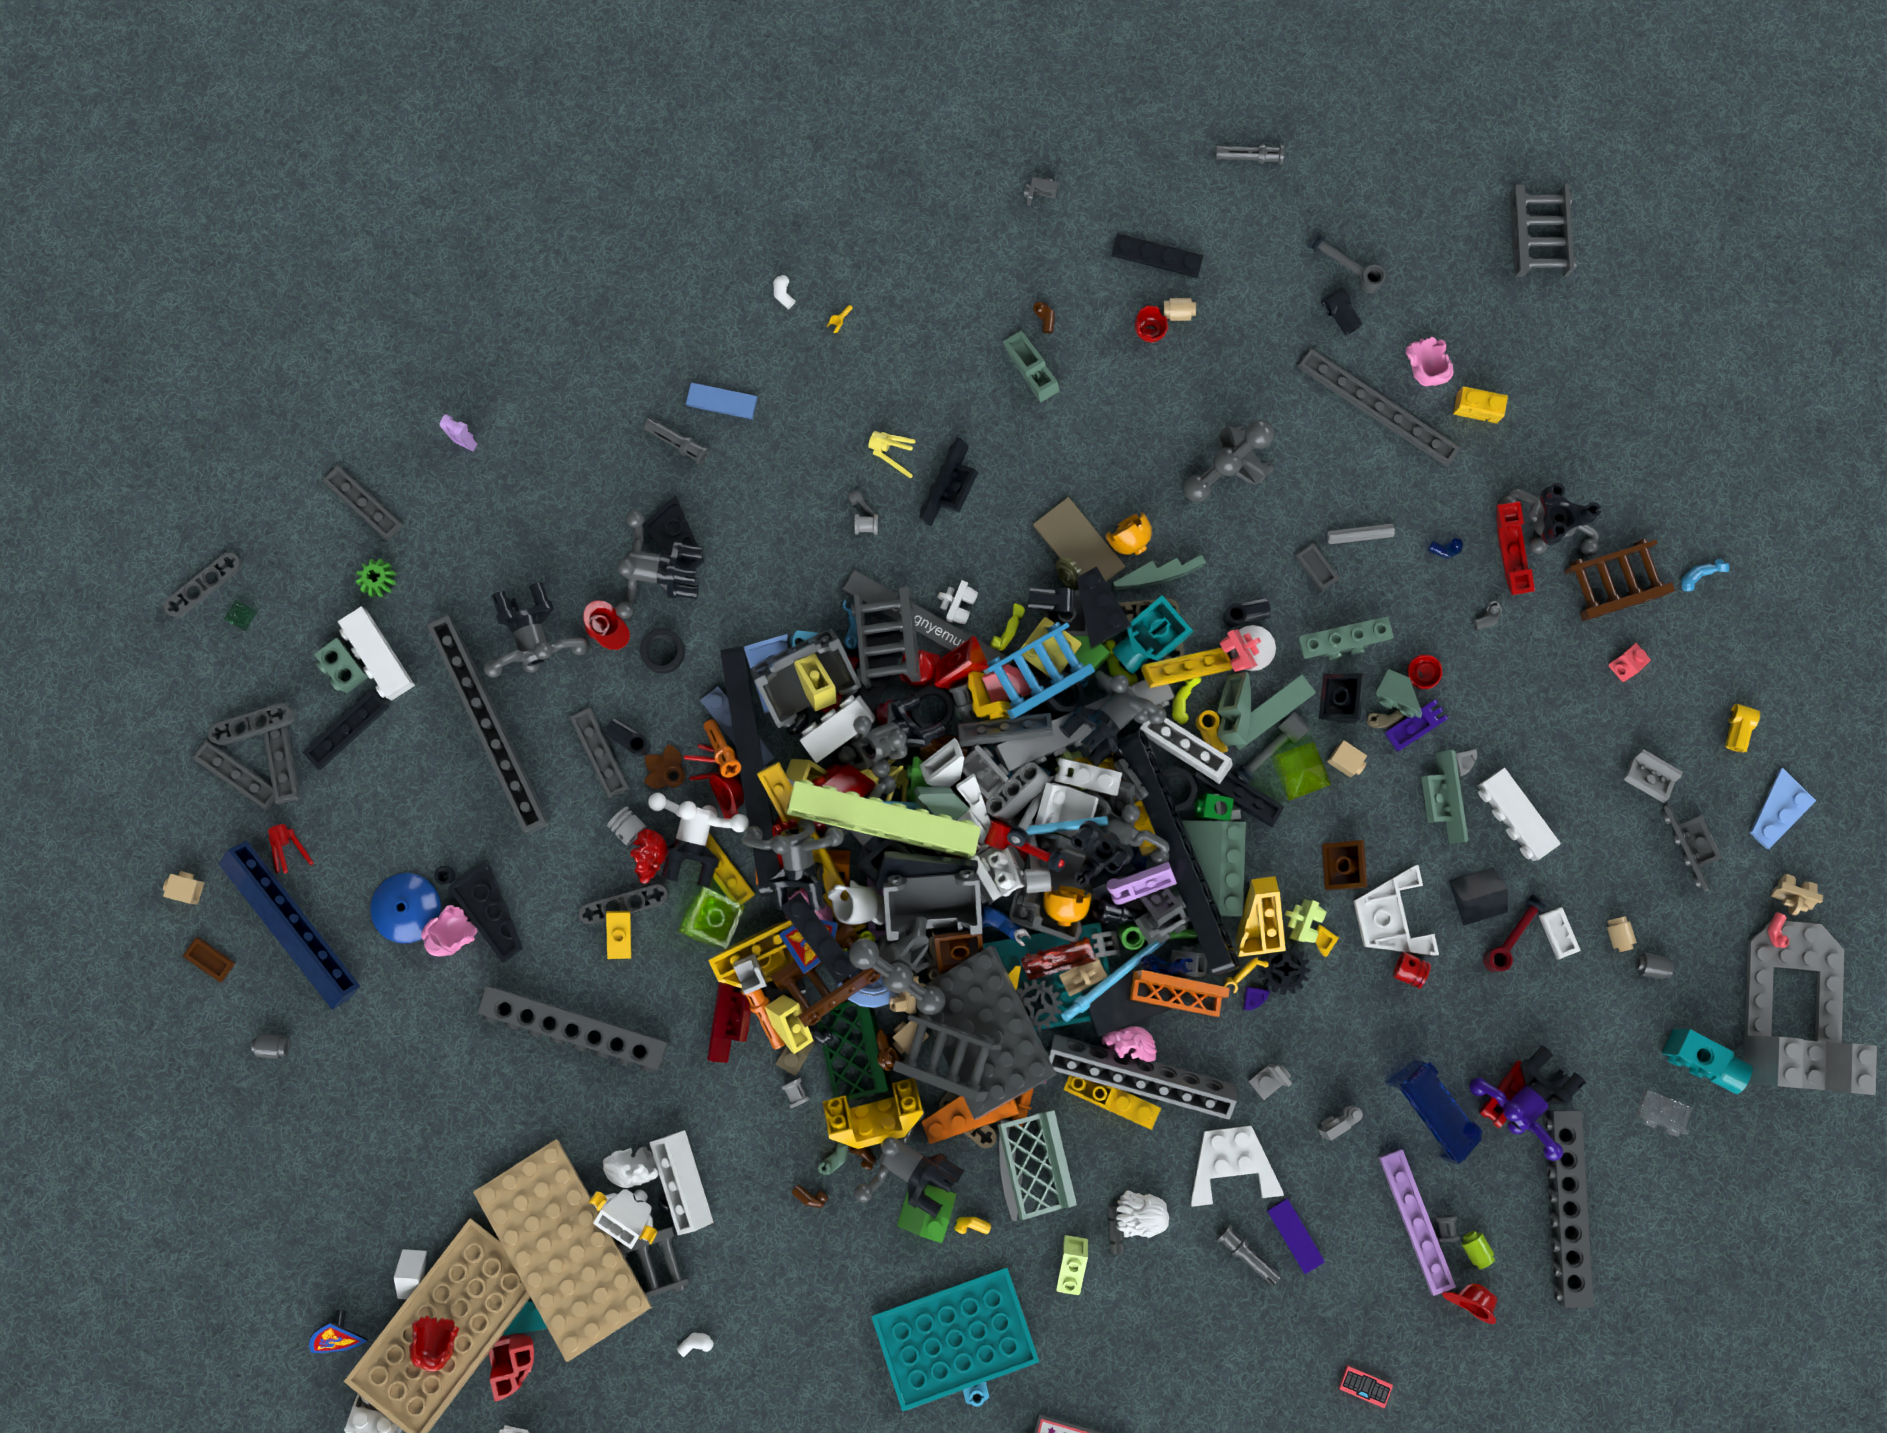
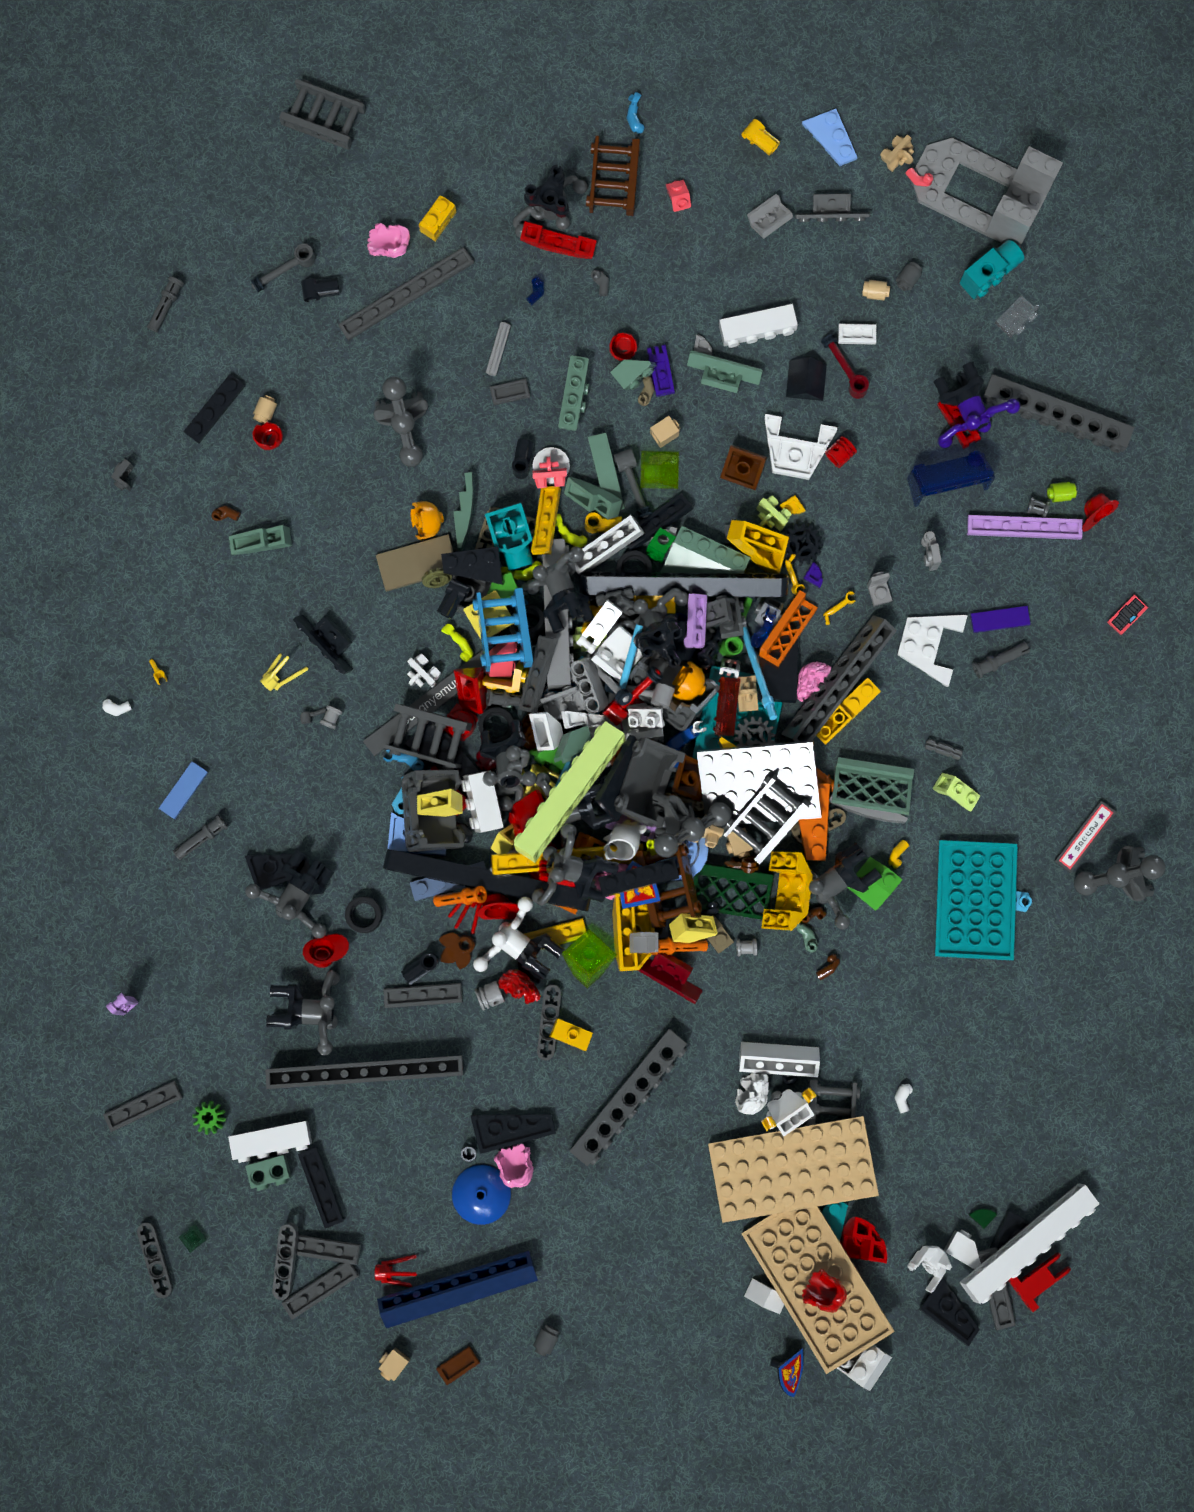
camera: 60 degrees left, 0 degrees up
(1141, 1215) = (940, 724): white hair -> none
(1228, 1039) = (837, 607): none -> yellow piece
(1342, 697) = (617, 415): black slope -> none

